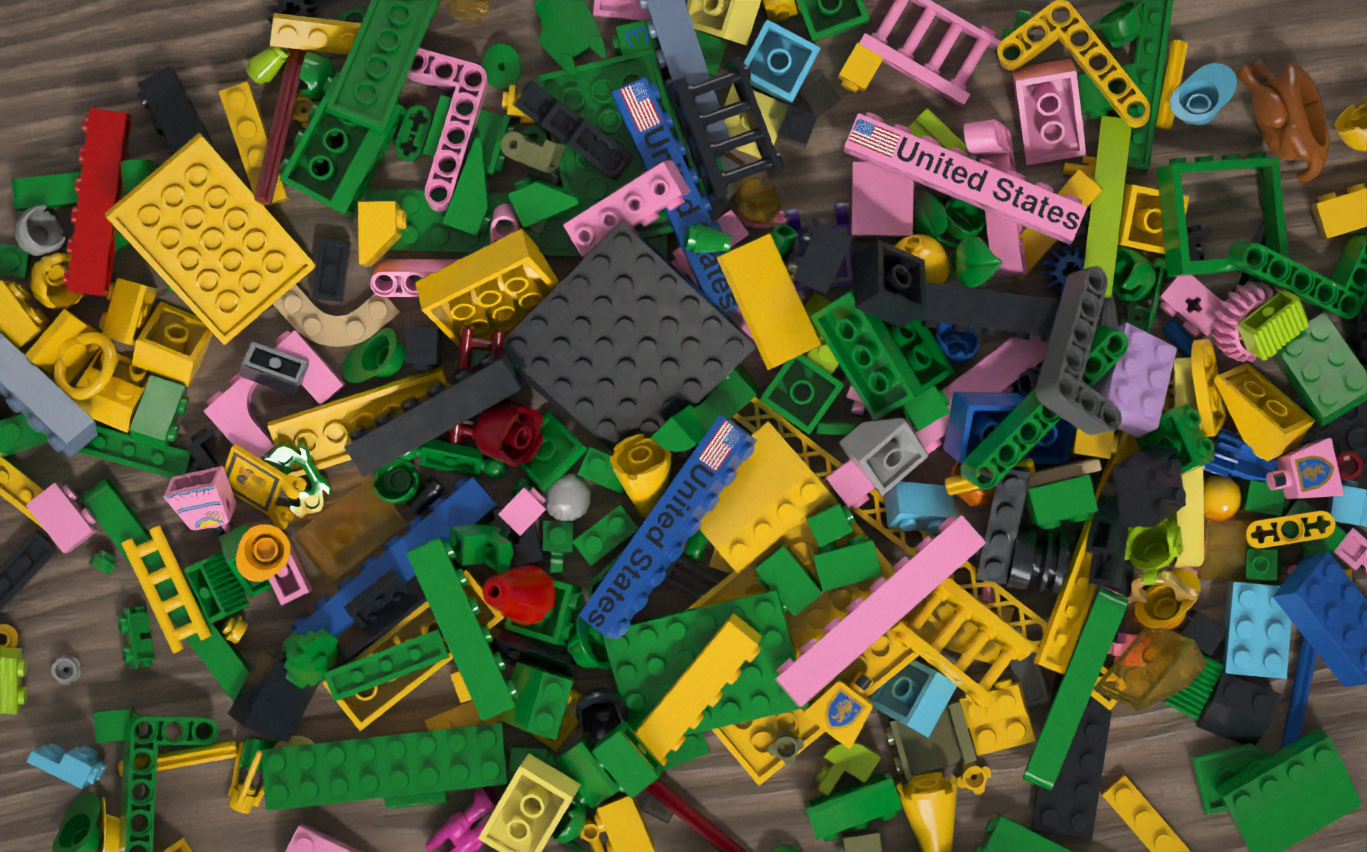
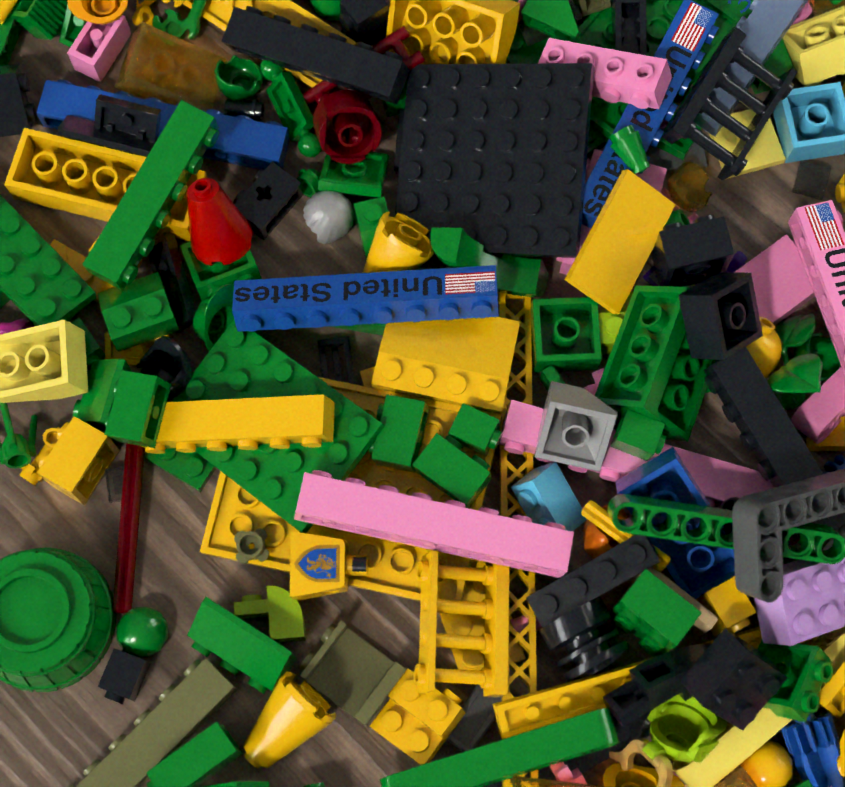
camera: 50 degrees right, 15 degrees down
(234, 629) = (23, 43): yellow plate -> none
(309, 656) = (37, 99): green plant -> none
(386, 665) = (73, 160): green plate -> none
(482, 545) = (234, 168): green brick -> none
(523, 510) = (290, 179): bright pink brick -> none
(558, 539) = (286, 237): green plate -> none
(571, 823) = (50, 413): green hair -> none
(606, 534) = (316, 260): green brick -> none
(696, 545) = (367, 348): green arm -> none
(797, 126) = (774, 175): black brick -> none
(915, 697) = (380, 627): medium azure slope -> none
(957, 345) = (710, 430): blue hair -> none
(978, 784) = (356, 744): yellow plate -> none

